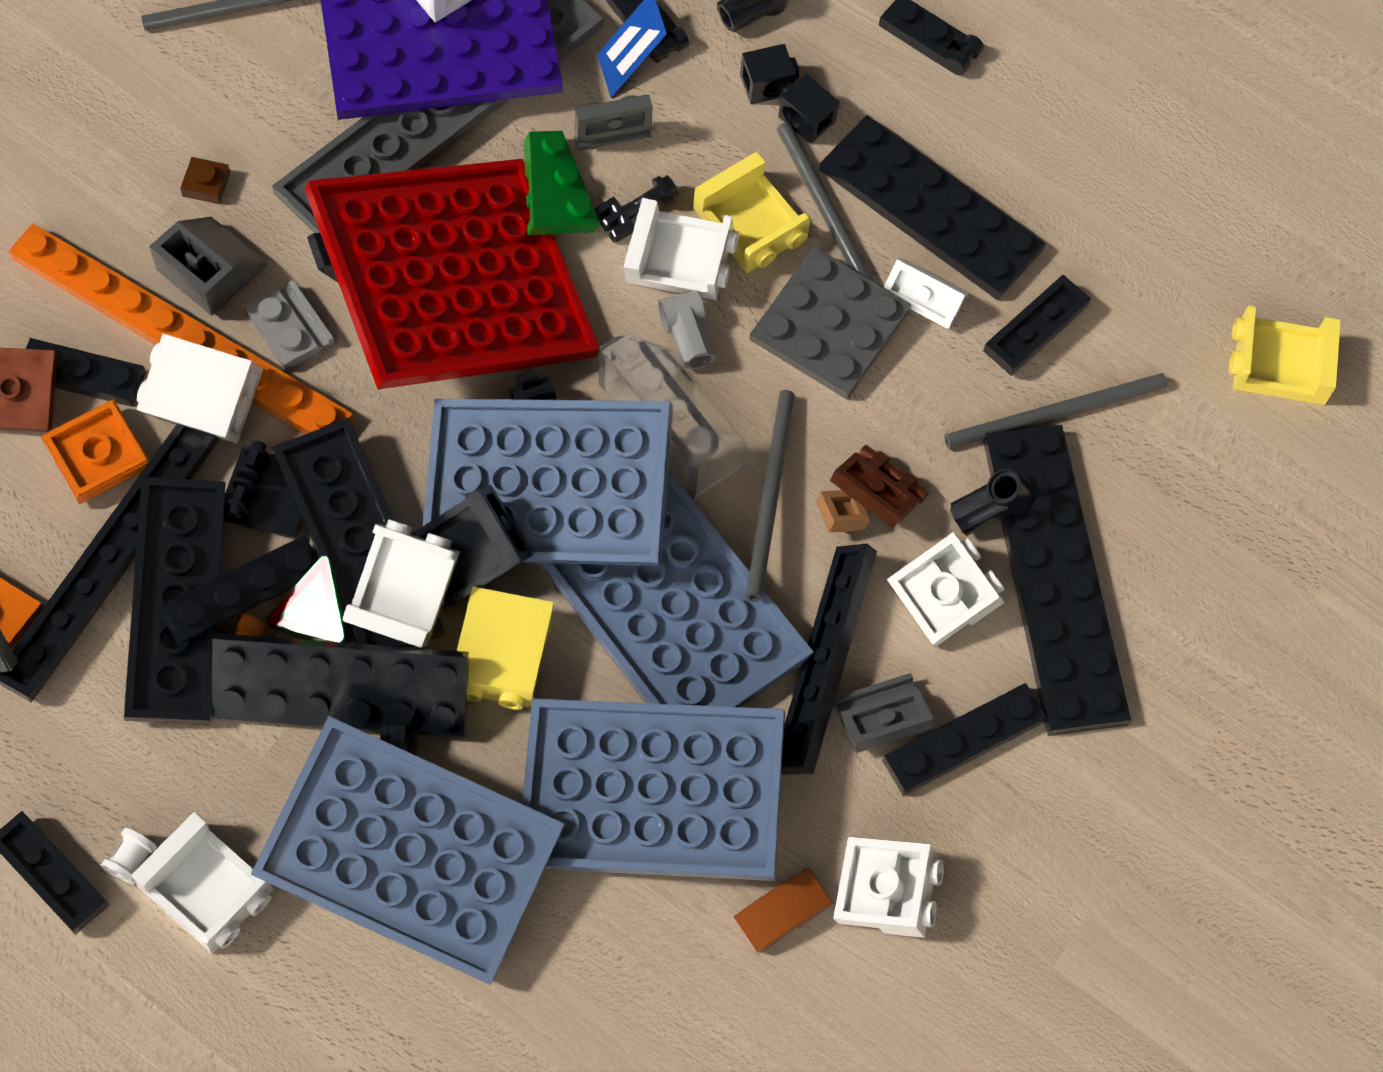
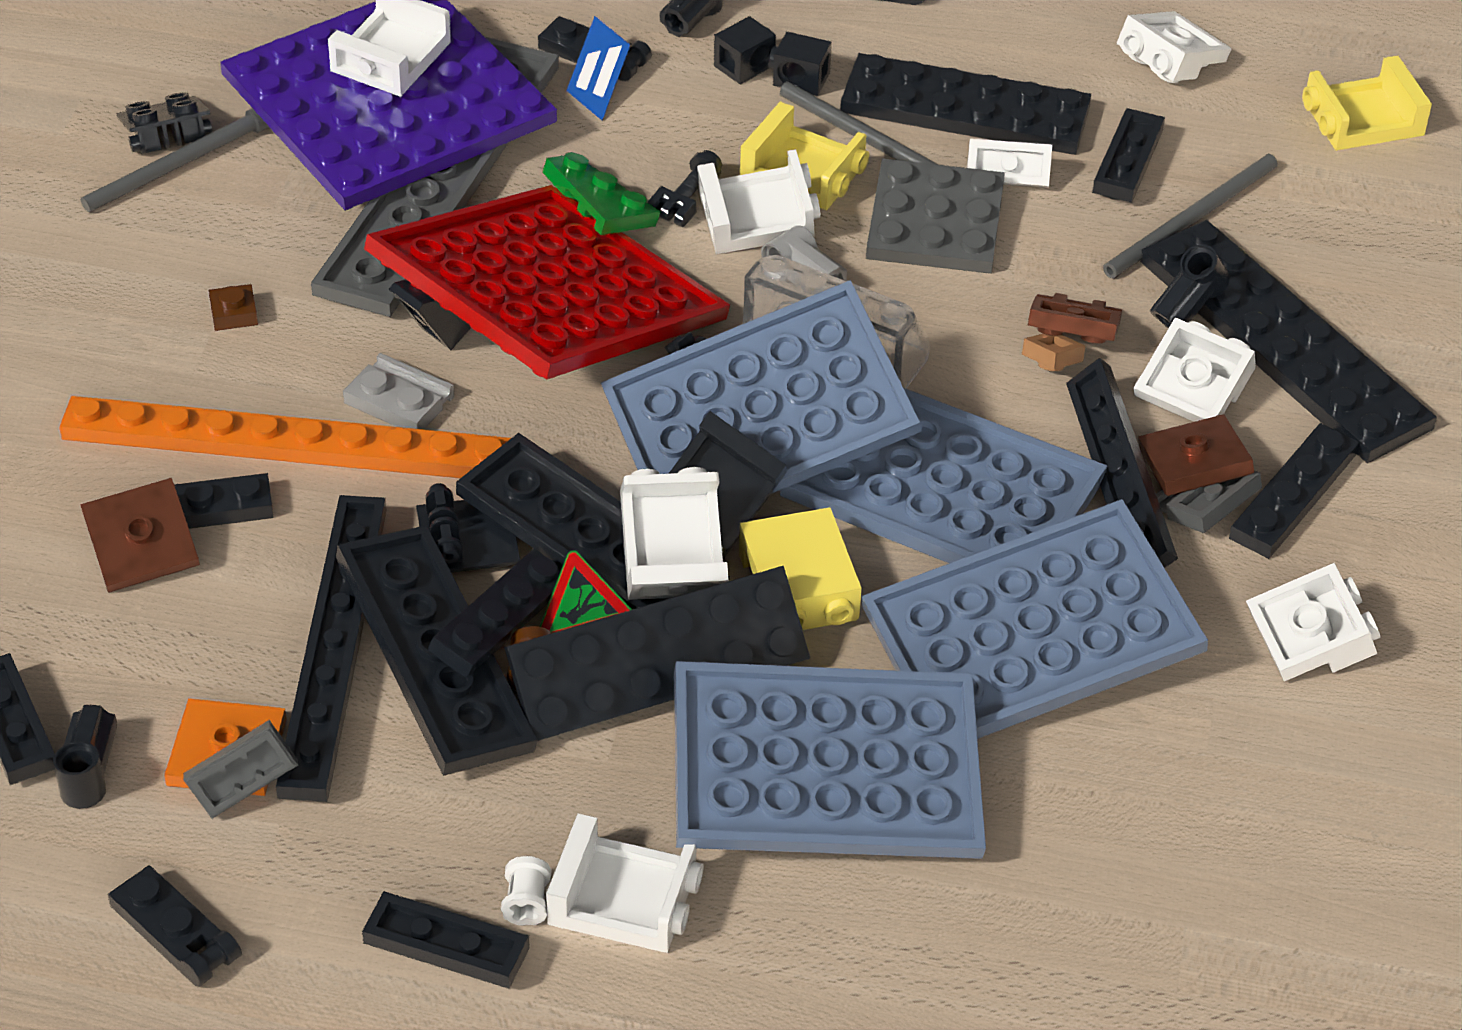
camera: 20 degrees left, 20 degrees down
(96, 451) = (262, 560): orange plate -> none
(199, 387) = (343, 459): white panel -> none
(205, 261) = (279, 368): dark grey slope -> none
(613, 121) = (623, 126): dark grey plate -> none
(770, 496) = (977, 362): dark grey piece -> none
(783, 909) = (1225, 686): dark orange slope -> none
(894, 673) = (1195, 455): none -> copper plate
(1148, 218) = (1170, 45): none -> white plate

